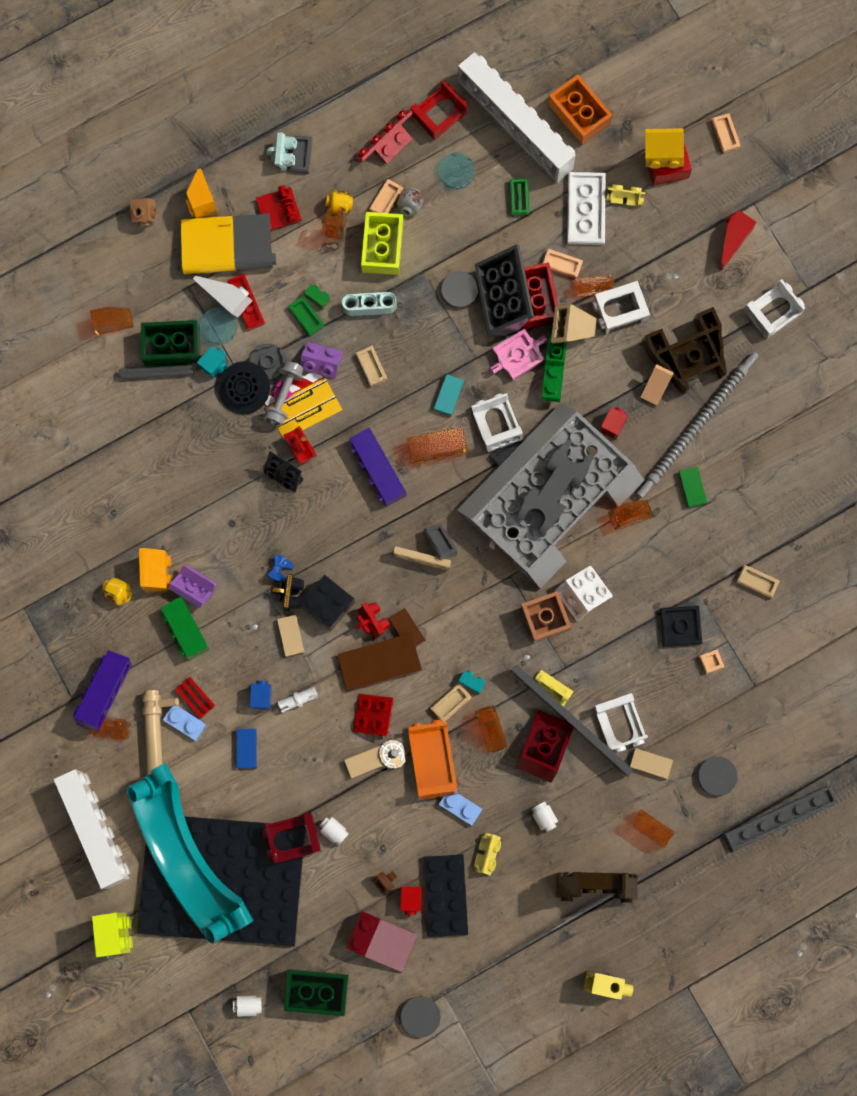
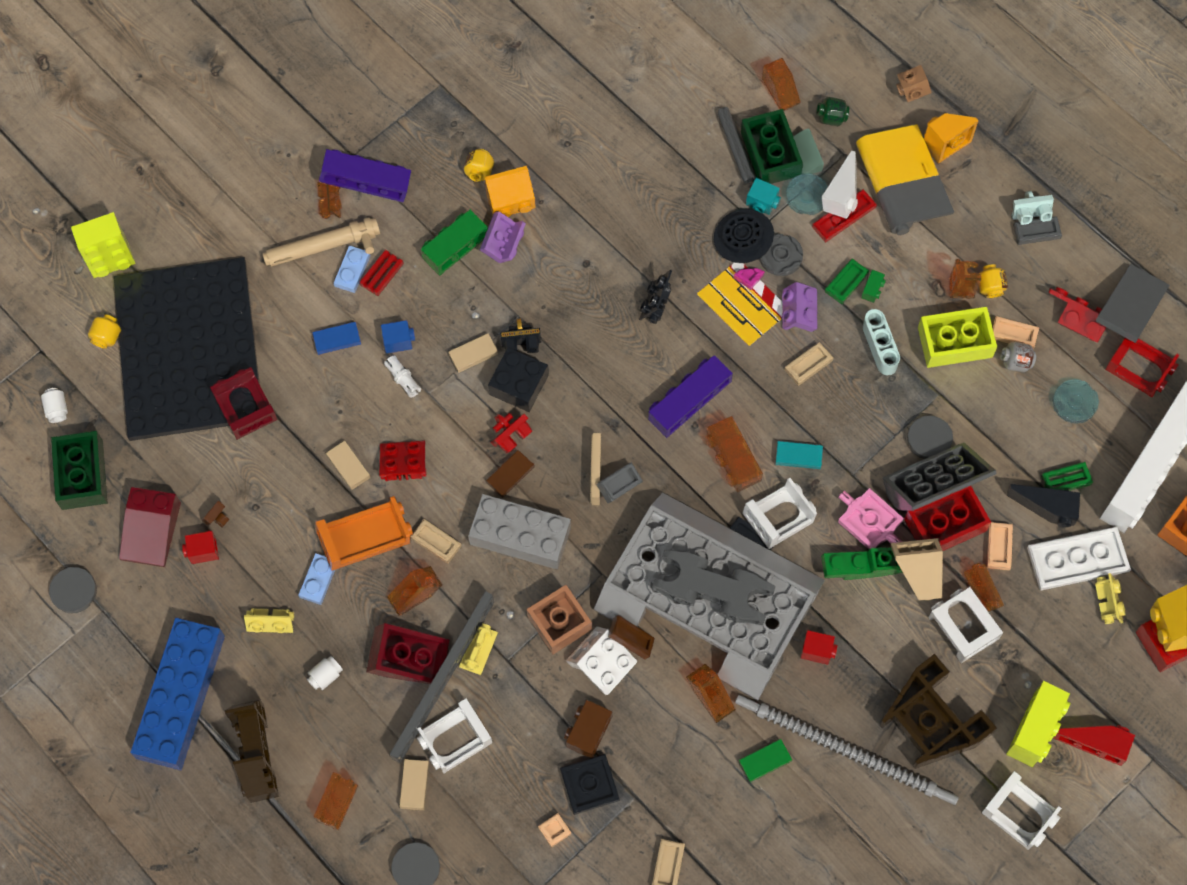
camera: 75 degrees right, 10 degrees down
(91, 829) = (213, 202): white brick -> none
(149, 284) = (832, 111): none -> dark green head
(166, 833) = (199, 295): teal panel -> none
(180, 313) = (809, 152): none -> sand green slope
(189, 950) = (104, 331): none -> yellow head
(279, 563) = (552, 321): blue piece -> none
(280, 206) = (966, 222): red hinge -> none
(291, 371) = (776, 278): light grey piece -> none
(300, 445) = (691, 307): red hips -> none
(333, 830) = (262, 447): white brick -> none
(379, 662) = (464, 452): reddish brown tile -> none
(388, 100) = (1132, 303): none -> dark grey tile
(392, 754) = (363, 491): piece -> none
(446, 895) = (214, 586): black plate -> none
(462, 632) = (520, 531): none -> light grey brick
(472, 682) = (464, 558): teal piece -> none
(535, 941) = (178, 694): none -> blue brick
(540, 214) = (1051, 504): none -> black slope
(573, 564) = (631, 637): none -> reddish brown tile
(600, 984) = (137, 776): light yellow torso -> none
(638, 615) = (588, 729): none -> reddish brown brick
(657, 385) = (879, 685): light nougat tile -> none
(714, 276) = (1039, 724): none -> neon yellow brick

